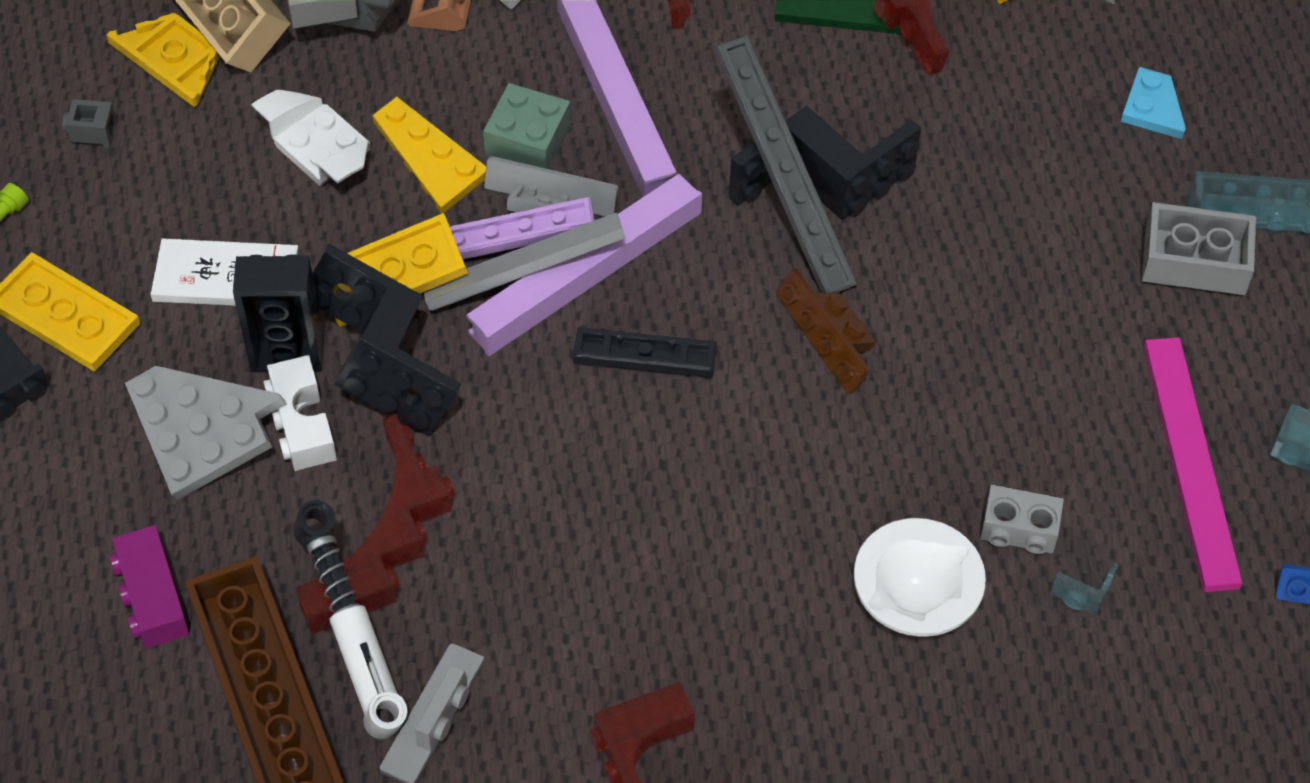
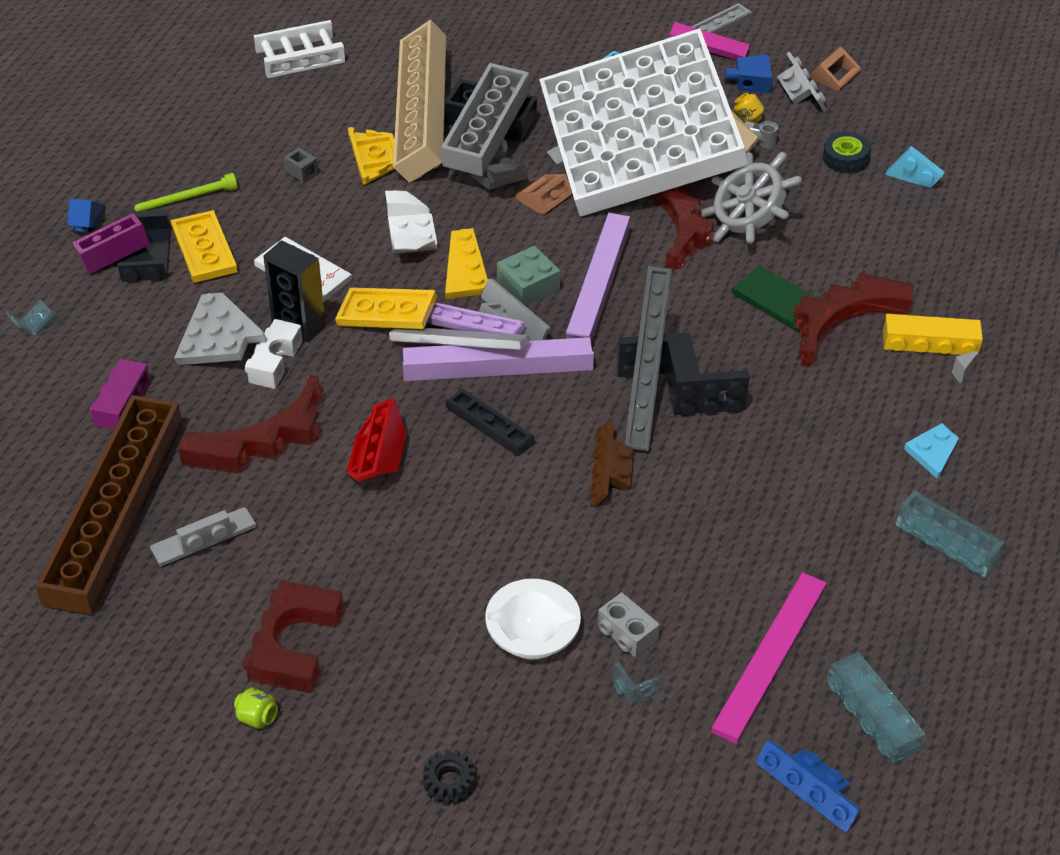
camera: 35 degrees right, 10 degrees down
(351, 624) = (195, 461): piece -> none
(376, 366) = (338, 333): black bracket -> none
(544, 465) = (378, 443): none -> red wedge
(1199, 248) = (882, 538): light grey brick -> none

